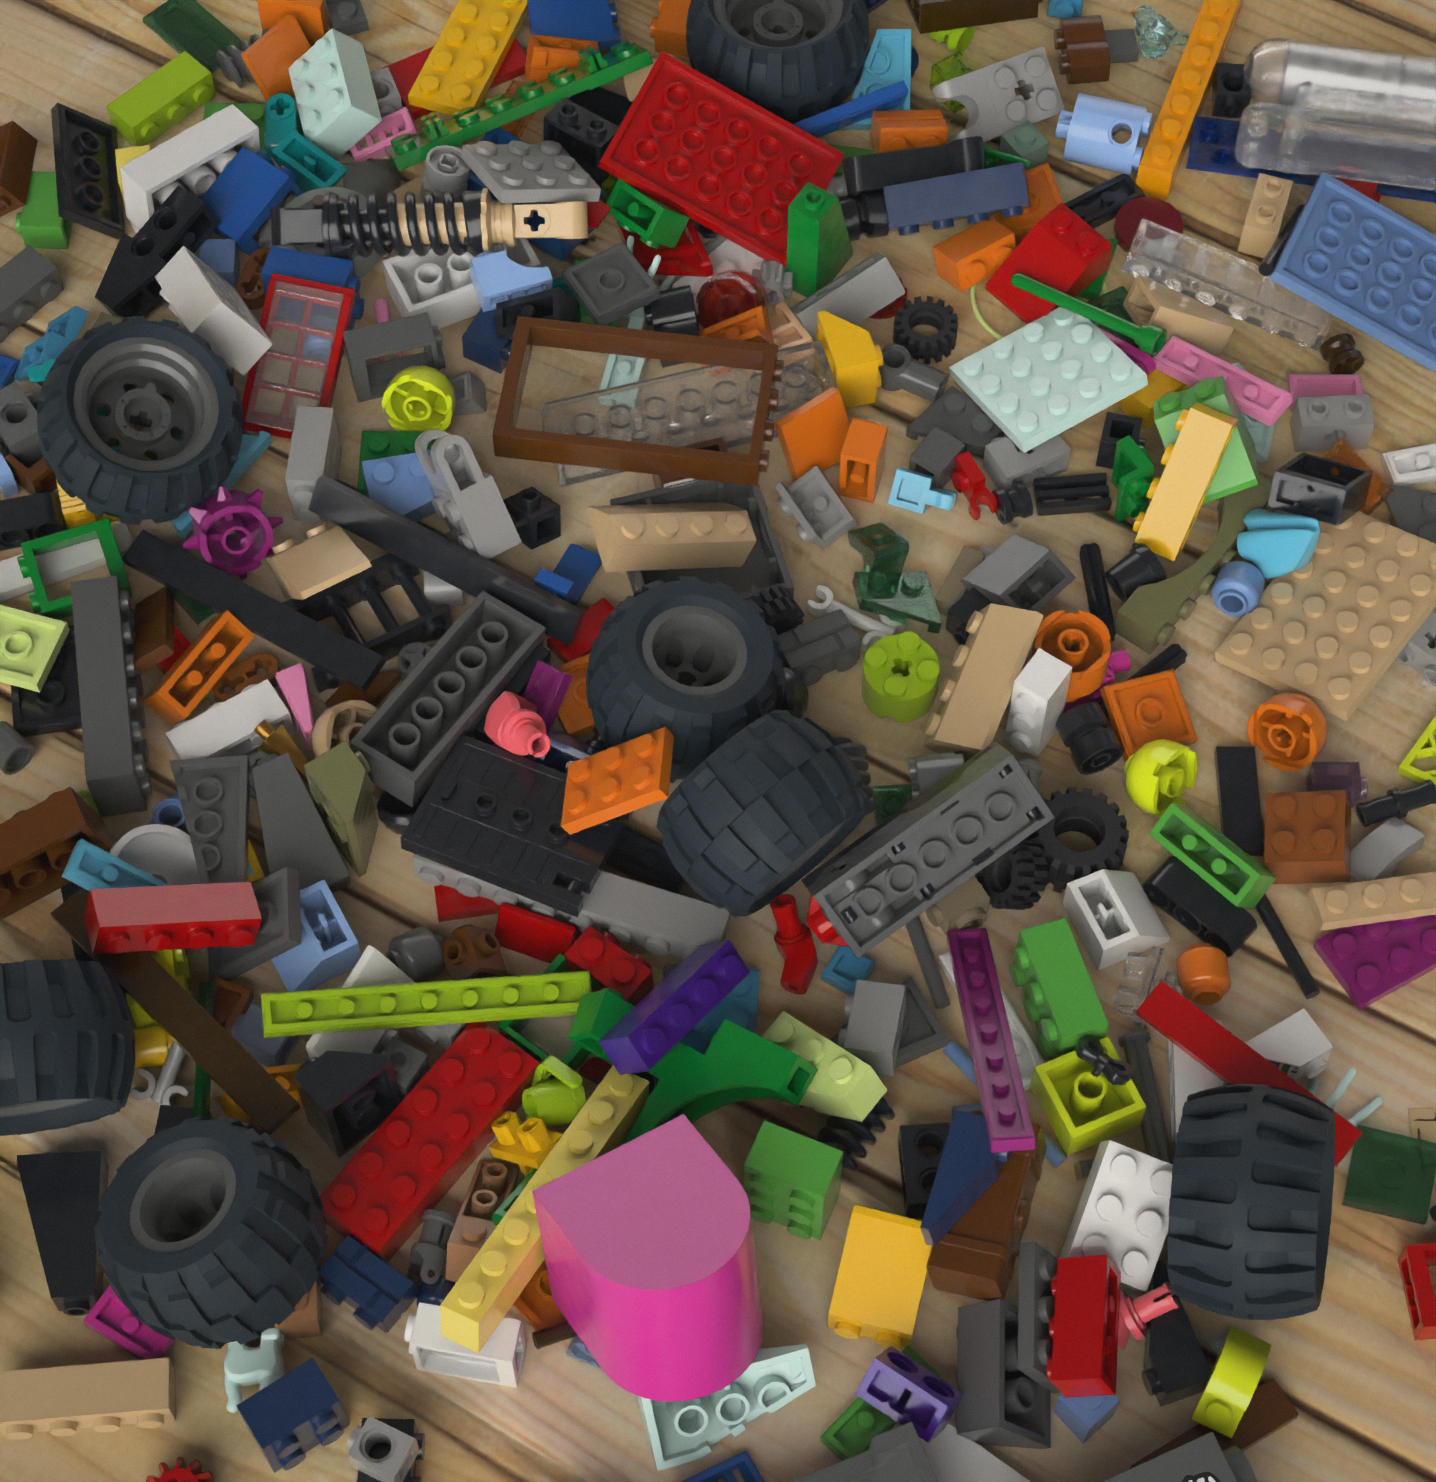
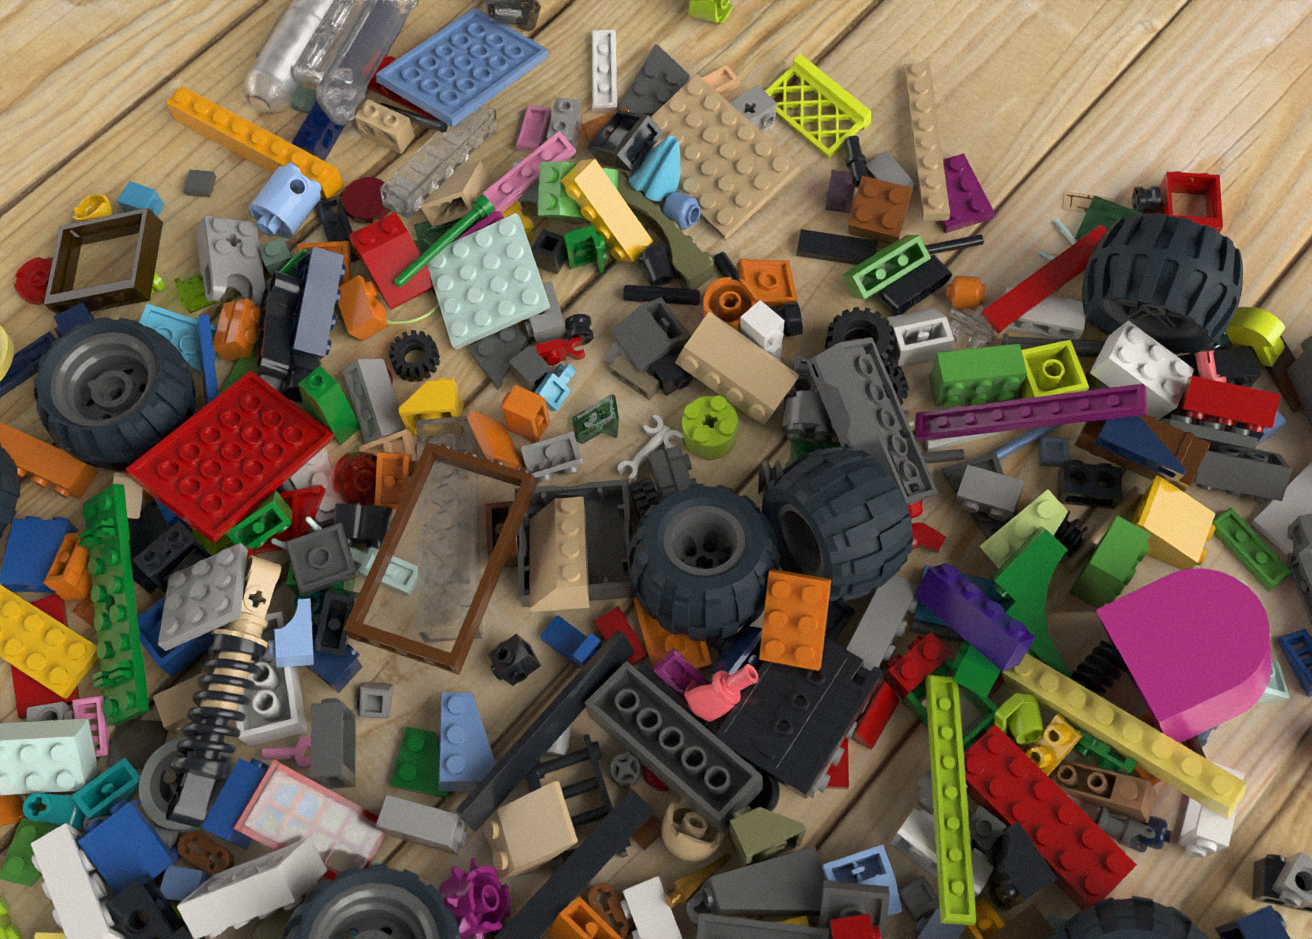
camera: 75 degrees left, 5 degrees up
(295, 693) = (637, 871): bright pink slope -> none
(366, 1284) = (1153, 876): dark blue brick -> none
(417, 954) = (883, 806): dark grey head -> none
(419, 399) = (378, 730): neon yellow cylinder -> none
(445, 172) = (173, 672): light grey wheel -> none
(465, 495) = (500, 700): light grey brick -> none
(472, 954) = (893, 763): reddish brown brick -> none
(775, 281) = (339, 446): light grey gear -> none
(845, 969) = (933, 510): dark azure tile -> none
(898, 596) = (640, 416): clear green wing -> none
(909, 1393) = (1261, 521): dark purple brick -> none
(911, 375) = (456, 367): dark grey piece -> none
(1071, 489) = (567, 292): black tile -> none
(1083, 49) = (193, 202): reddish brown brick -> none
(1115, 1071) = (1048, 348): black piece -> none
(1155, 32) = (198, 157): clear light blue animal -> none
(1159, 775) = (818, 286): neon yellow cylinder -> none
(1229, 91) = (271, 120): black brick -> none
(1288, 731) = (798, 204): orange cylinder -> none
(1294, 1046) = (1021, 255): white slope -> none
(1341, 354) = (511, 110): dark brown wheel -> none

